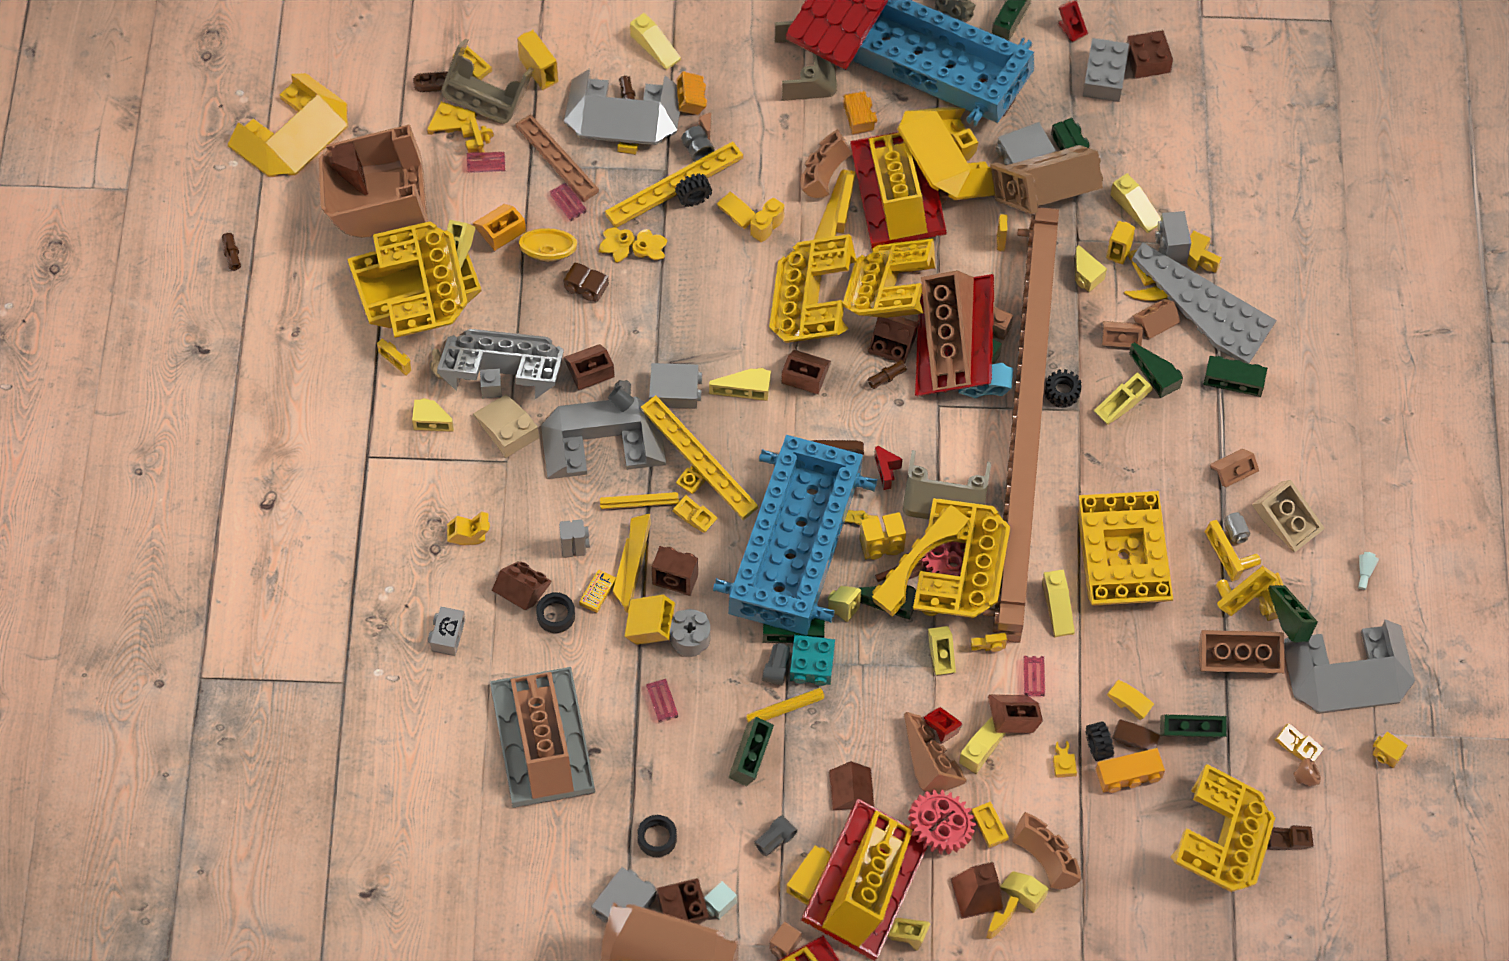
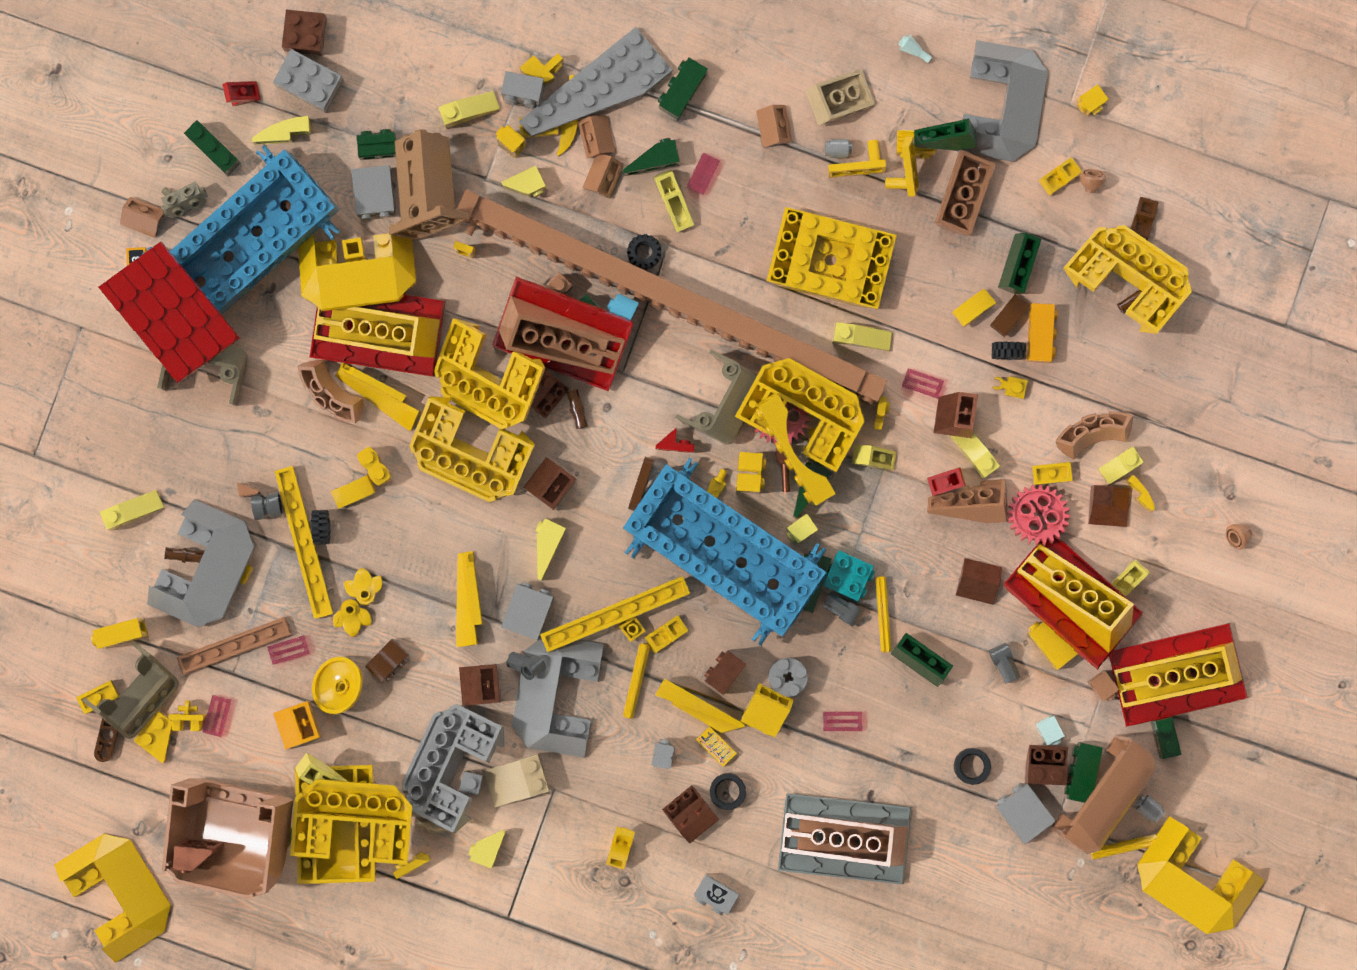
camera: 75 degrees left, 25 degrees up
(666, 337) = (468, 601): none -> yellow wedge
(691, 93) = (205, 493): light orange brick -> none
(858, 112) = (279, 337): light orange brick -> none
(1051, 64) = (283, 131): none -> light yellow slope
(1160, 419) = (703, 173): none -> clear pink tile

